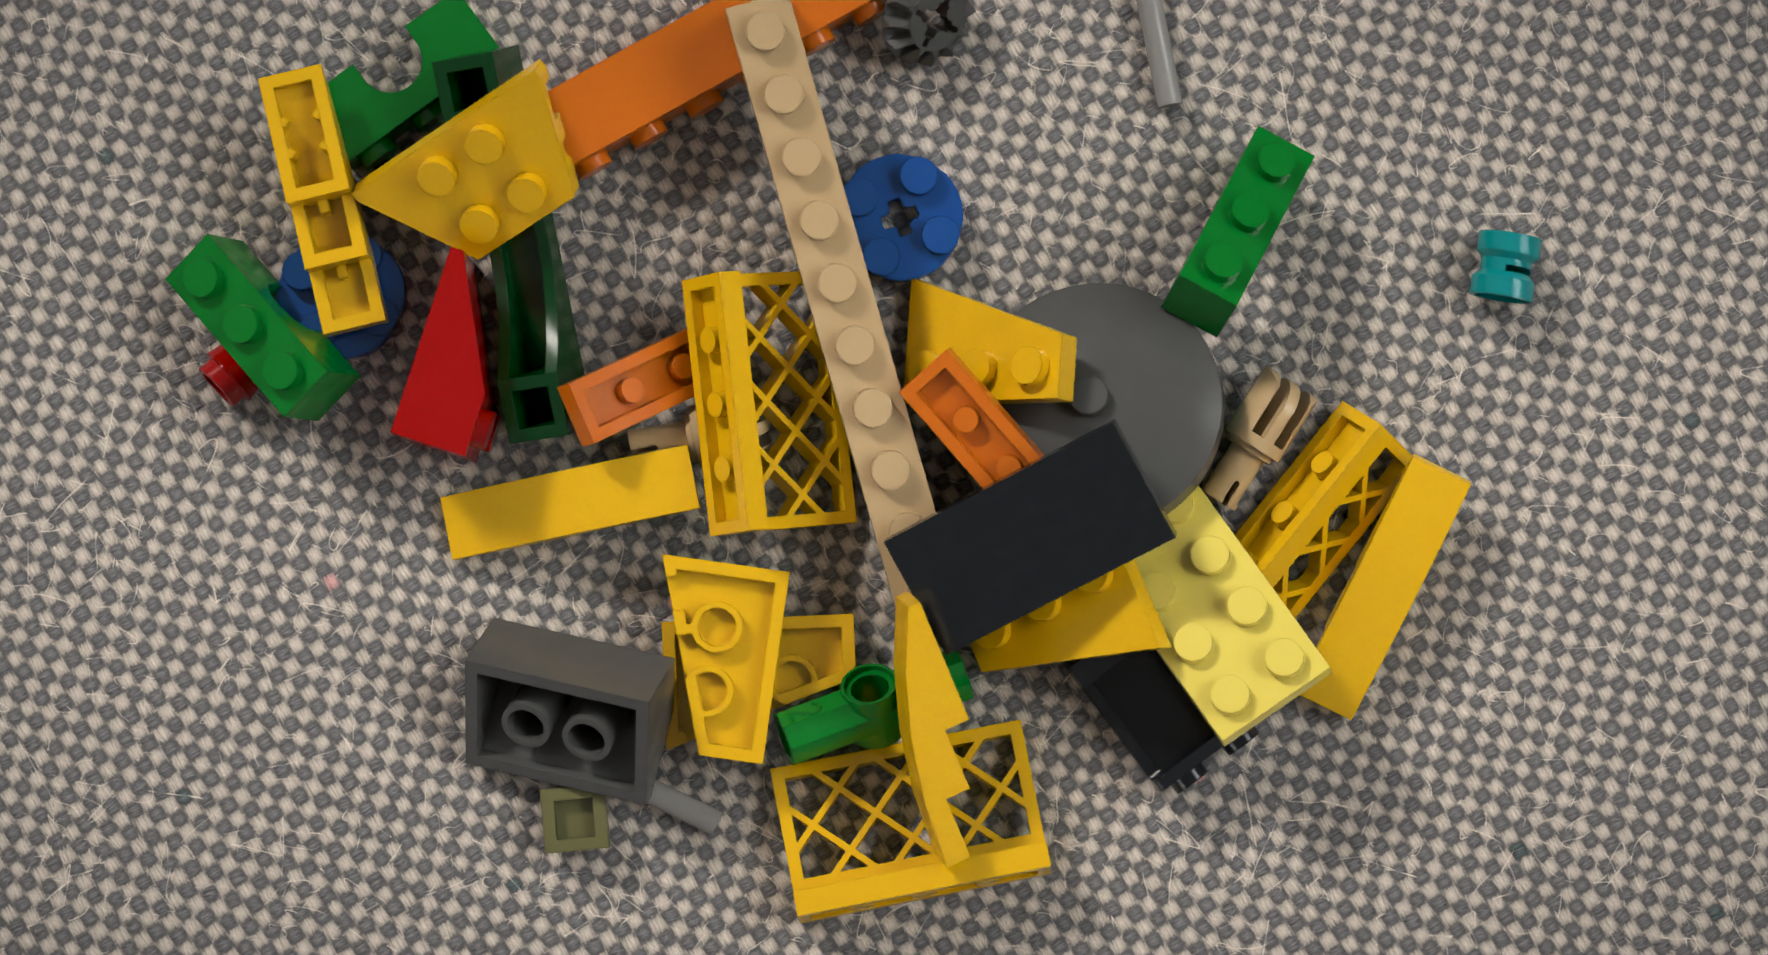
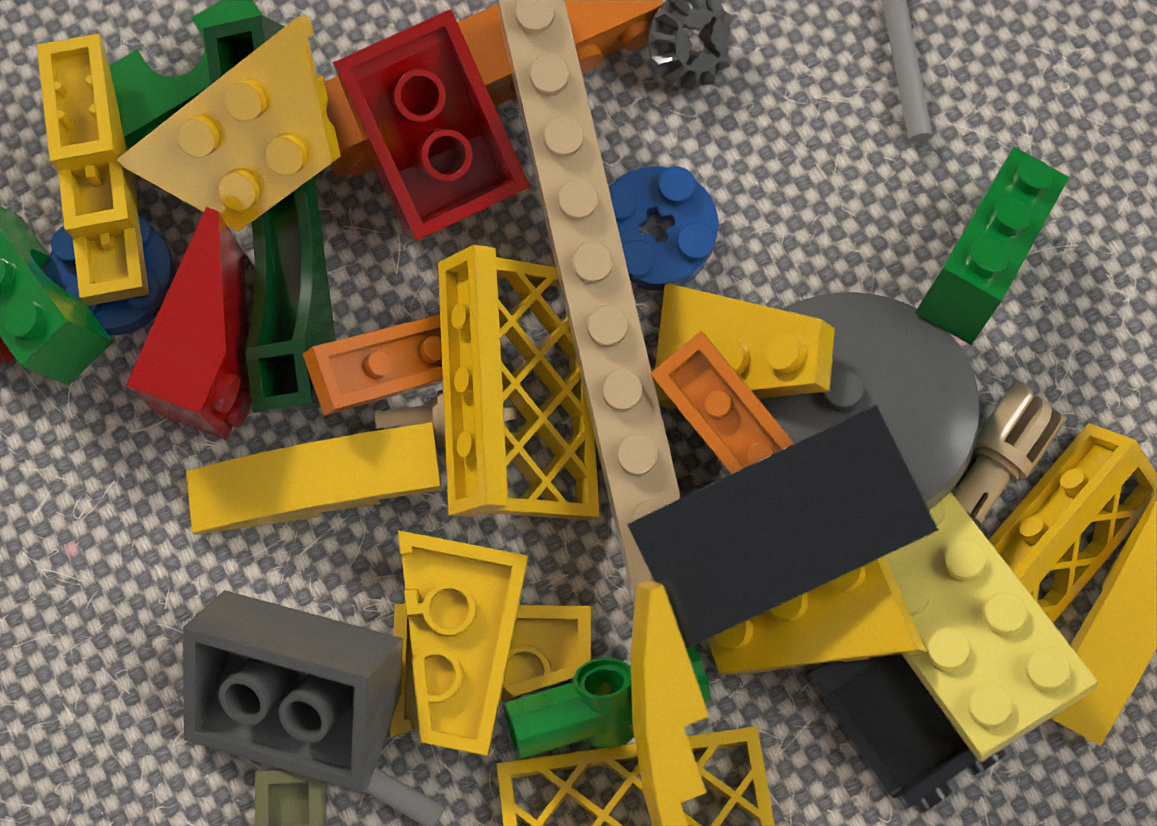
camera: 10 degrees right, 10 degrees down
(666, 144) = (430, 126): none -> red slope

